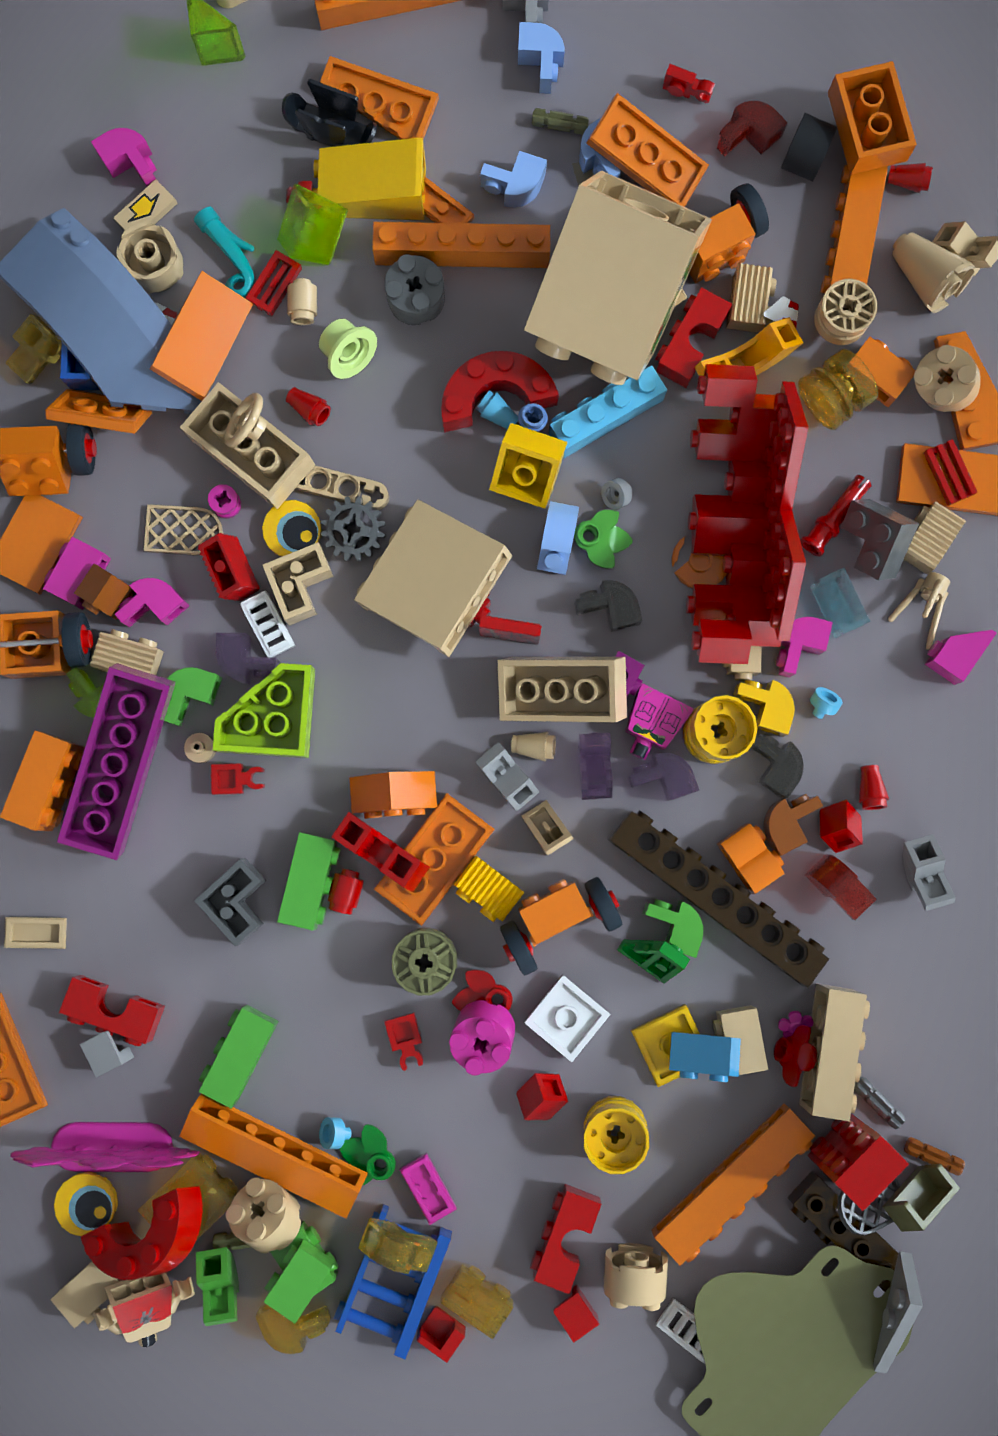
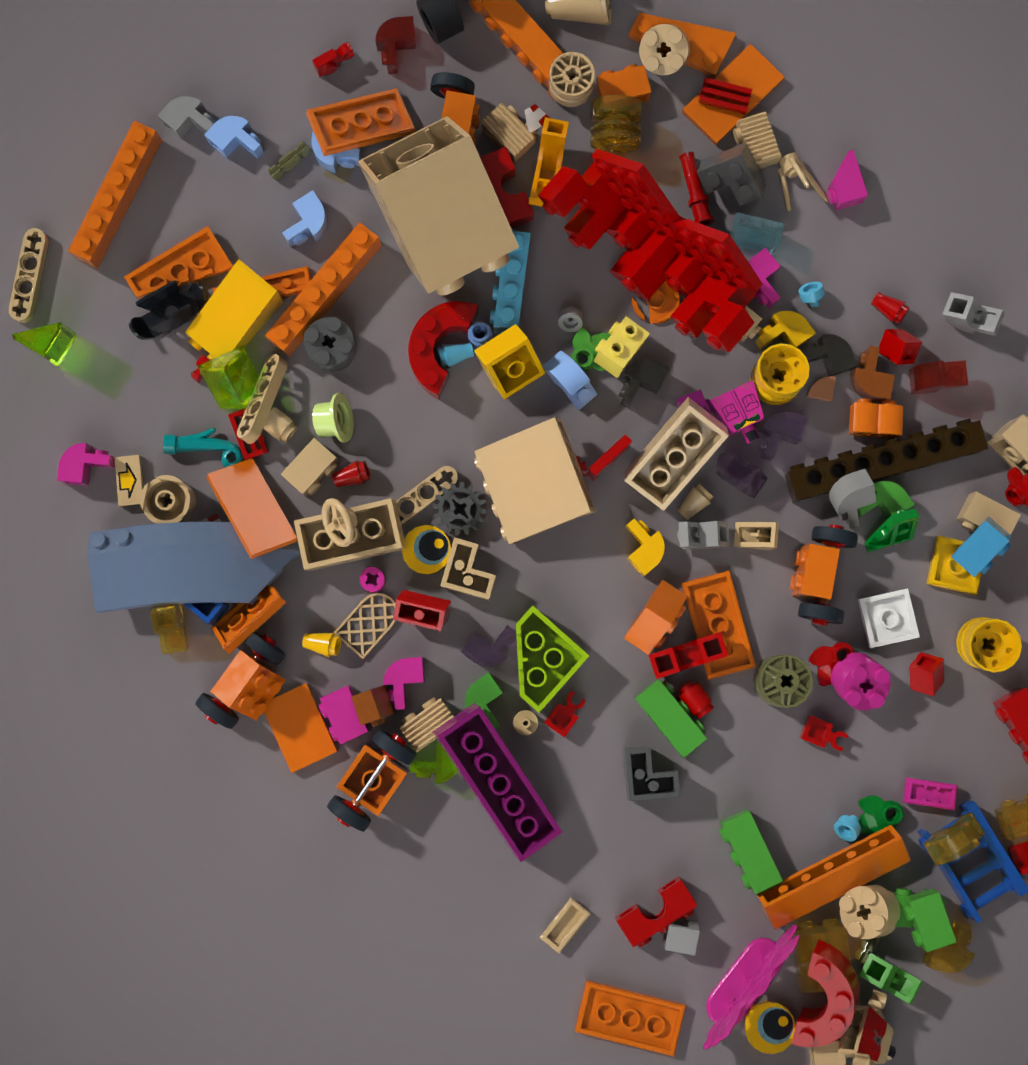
camera: 50 degrees left, 0 degrees up
(43, 782) = (472, 841): orange brick -> none
(128, 501) = (322, 643): none -> yellow cone
(255, 601) = (458, 609): white slope -> none
(284, 362) = (310, 468): none -> tan brick
(312, 267) = (262, 399): none -> tan beam
(450, 739) = (651, 548): none -> yellow brick
(488, 889) = (765, 604): yellow brick -> none
(627, 559) = (621, 346): none -> light yellow brick
(656, 886) = (851, 493): none -> light grey brick
(740, 784) = (823, 389): none -> nougat tile
(795, 1019) = (1001, 473): dark pink plant -> none

